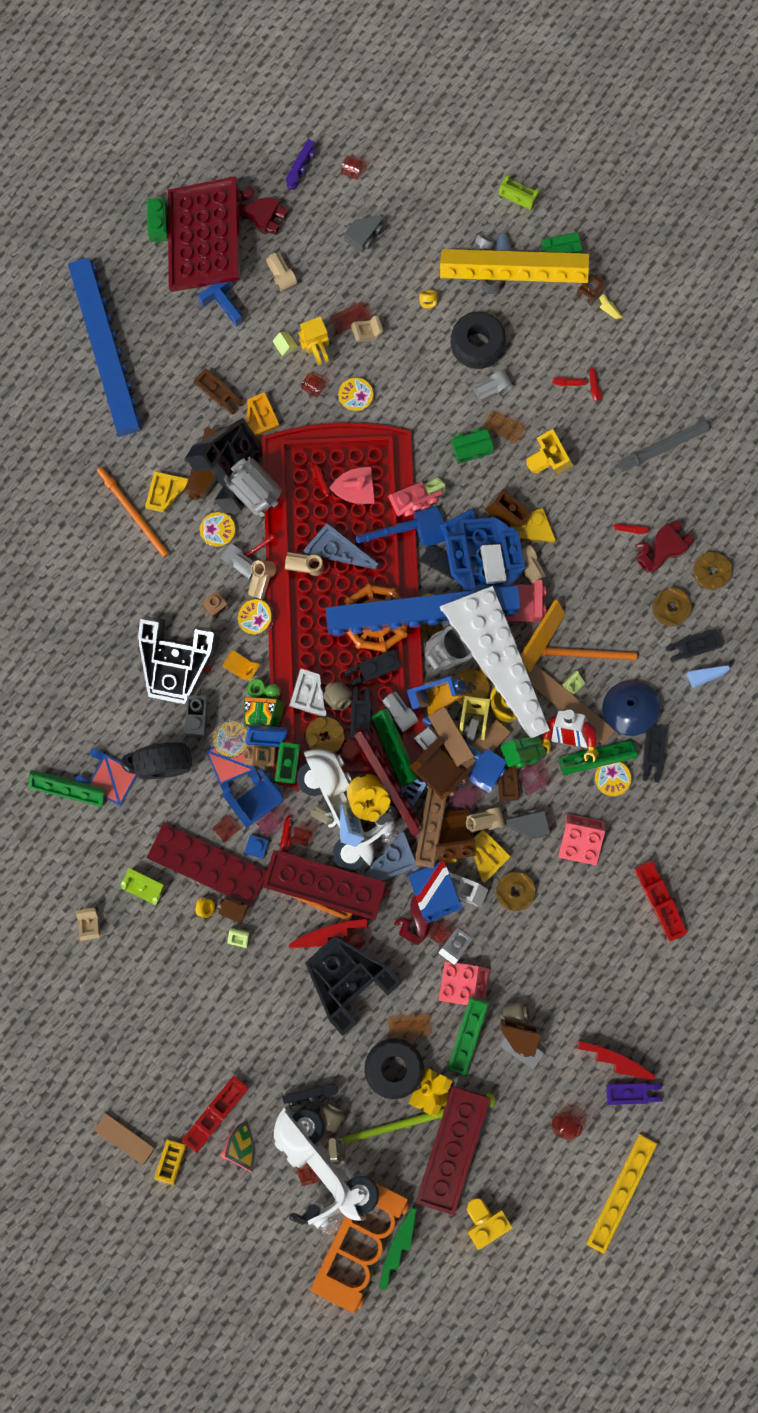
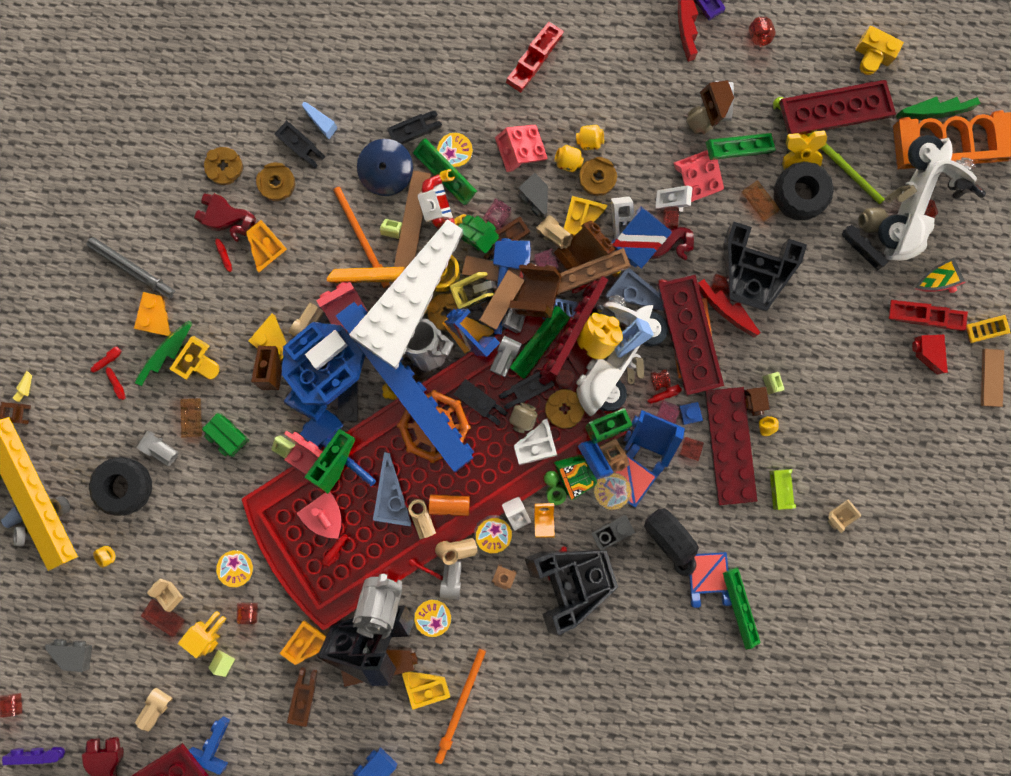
camera: 120 degrees left, 5 degrees up
(181, 1095) = (932, 352): none -> red slope
(261, 644) = (516, 513): none -> white slope
(301, 592) = (449, 505): none -> orange pin
(394, 515) = (331, 462): none -> green slope
(546, 873) = (568, 158): none -> yellow head
(555, 905) = (590, 137): none -> yellow head
(573, 438) = (168, 347): none -> green slope
(611, 441) = (152, 315): none -> light orange wing
(619, 566) = (264, 245): none -> light orange wing

